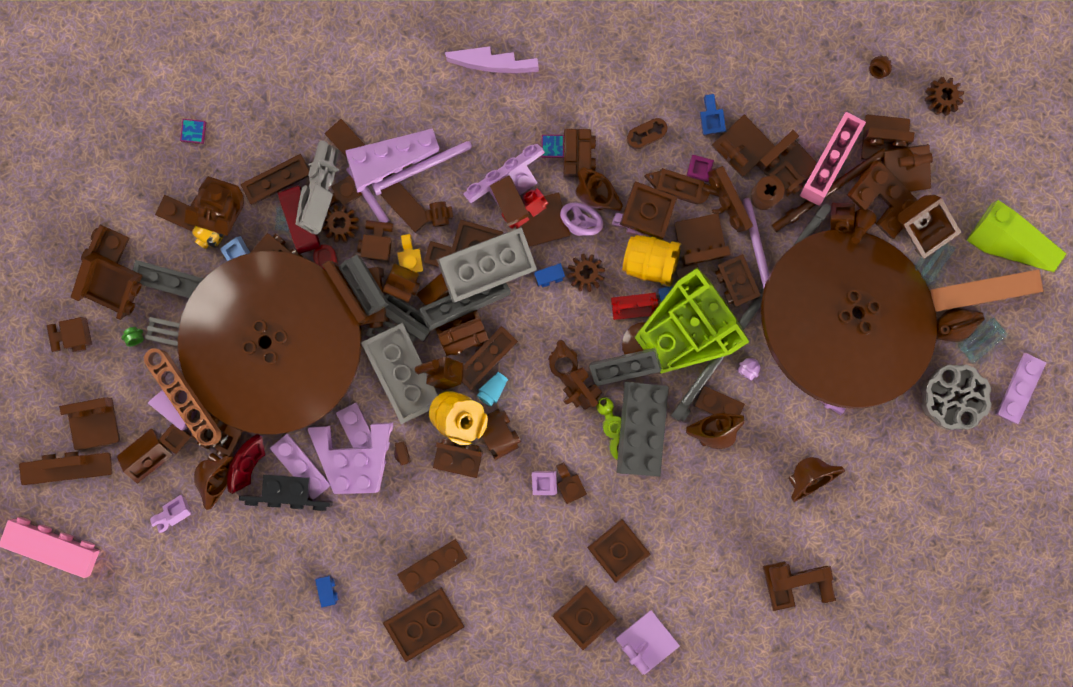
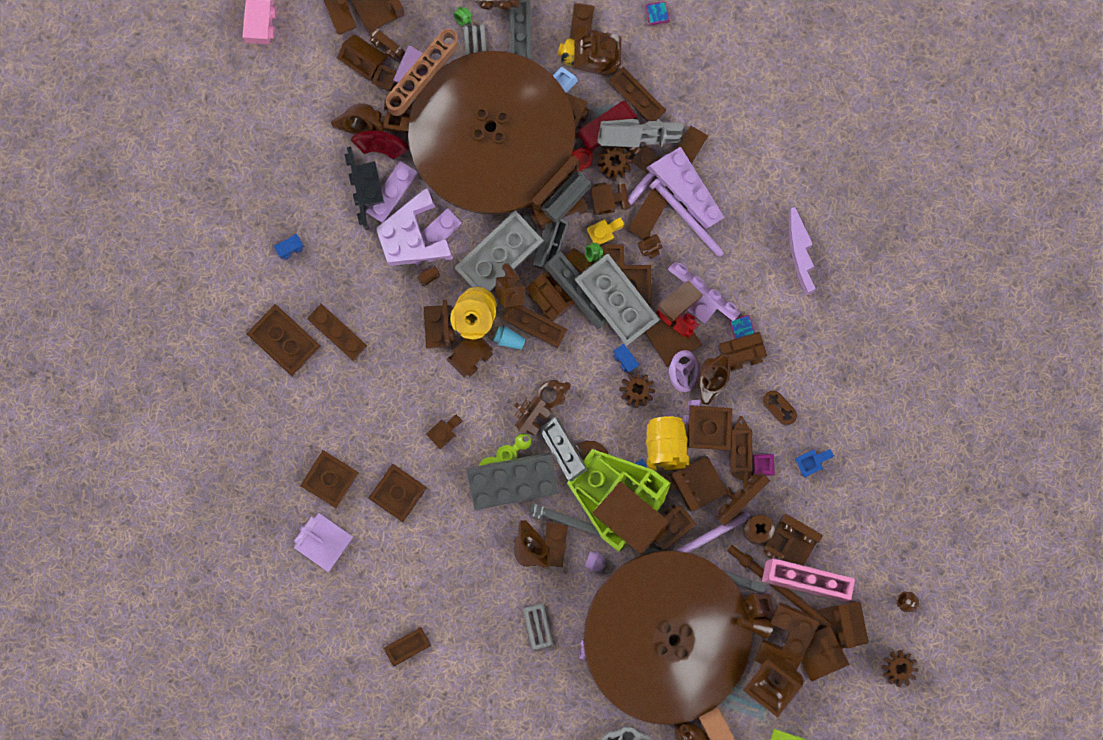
camera: 75 degrees right, 5 degrees down
(130, 432) = (392, 49): none -> reddish brown plate
(172, 514) = (319, 95): lavender plate -> none
(401, 283) = (578, 230): reddish brown brick -> none
(429, 274) = (593, 252): none -> bright green plate
(544, 483) = (438, 408): lavender plate -> none
(634, 306) = (620, 441): red hinge -> none
(719, 319) = (630, 518): none -> reddish brown tile
(743, 145) = (796, 497): reddish brown plate -> none
(777, 446) = (530, 632): none -> light grey tile
(784, 580) = (414, 646): reddish brown beam -> none
(812, 475) = (514, 646): reddish brown hat -> none

